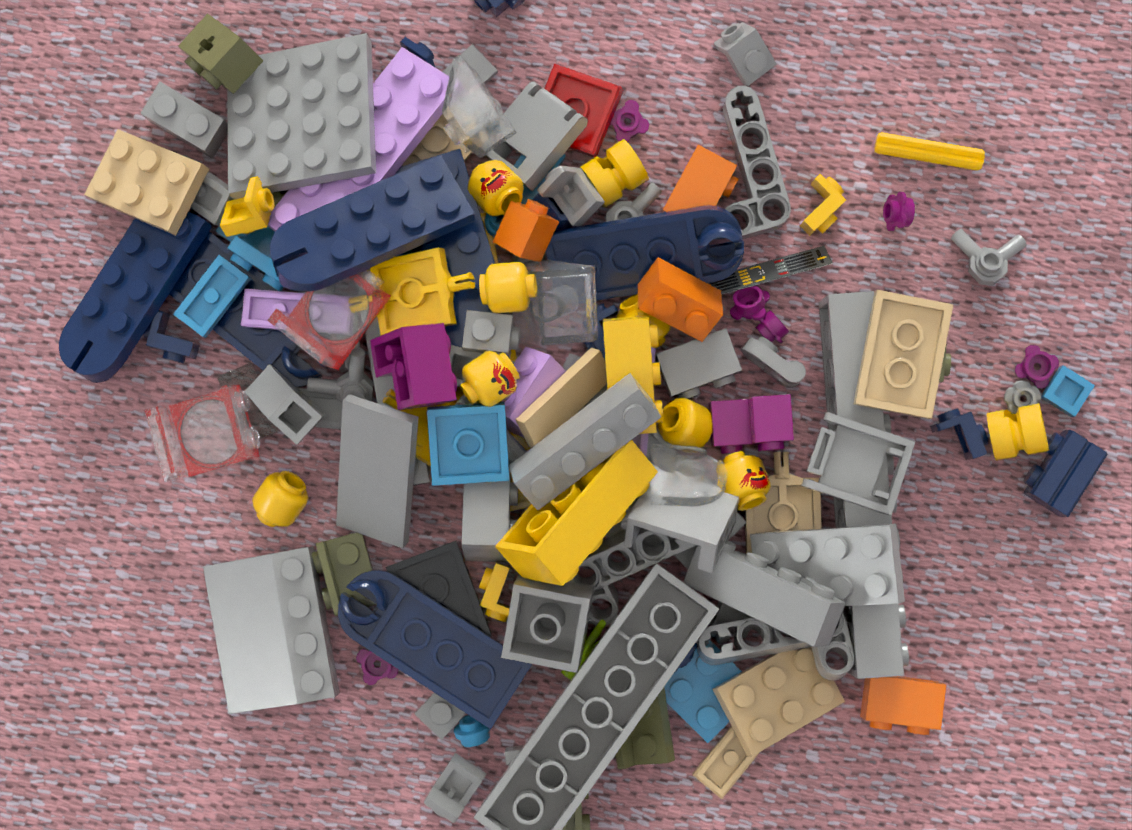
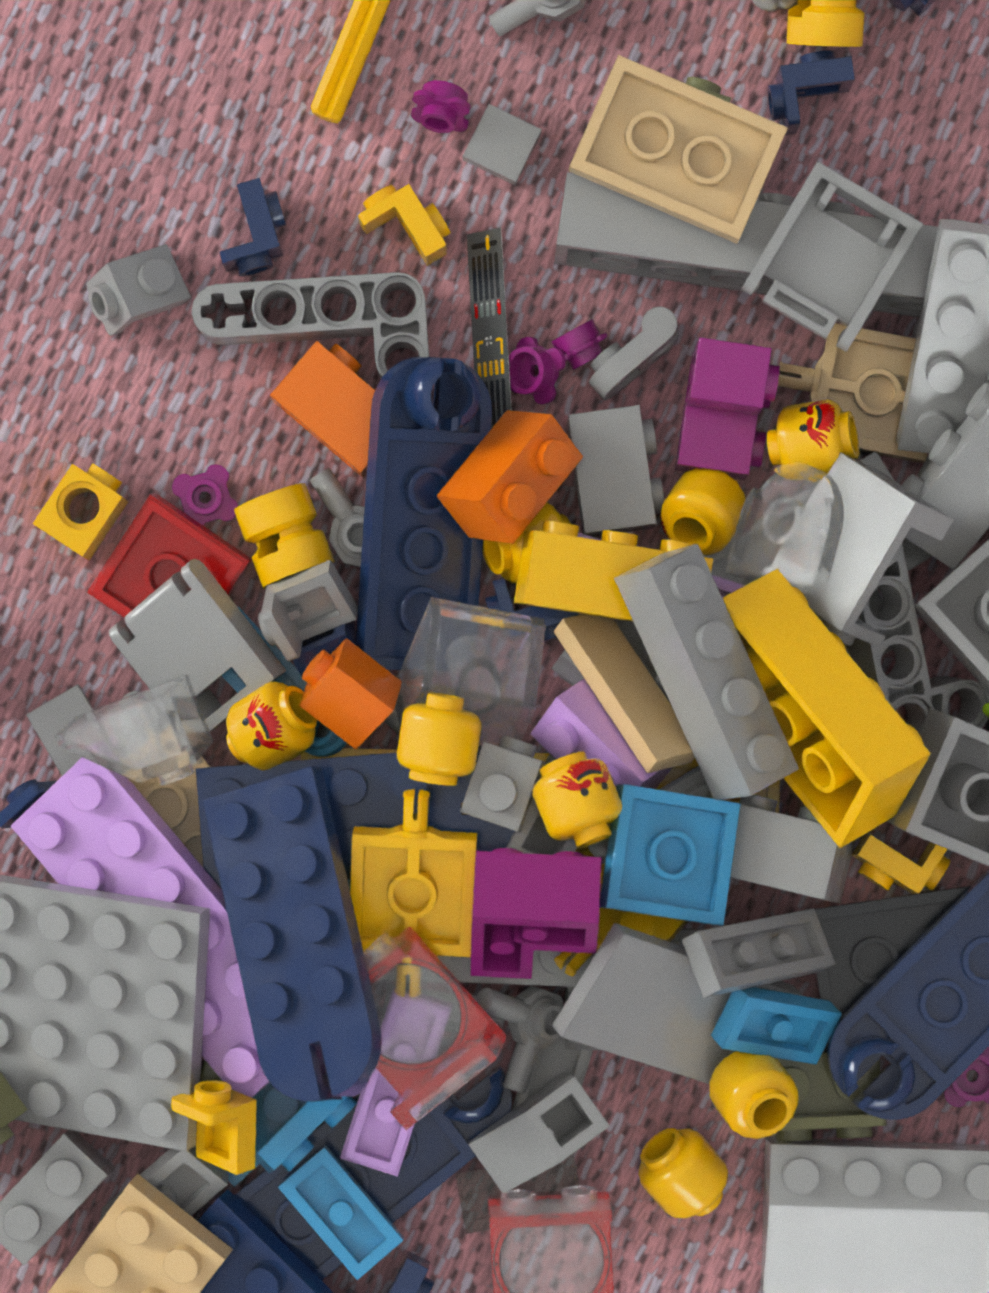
camera: 80 degrees left, 0 degrees up
(336, 529) = (753, 1094): none -> yellow head
(381, 534) = (776, 1024): none -> dark azure plate
(421, 512) = (758, 952): none -> light grey plate
(596, 34) = (55, 514): none -> yellow brick
(805, 118) = (263, 217): none -> dark blue bracket
(884, 254) = (502, 144): none -> light grey tile

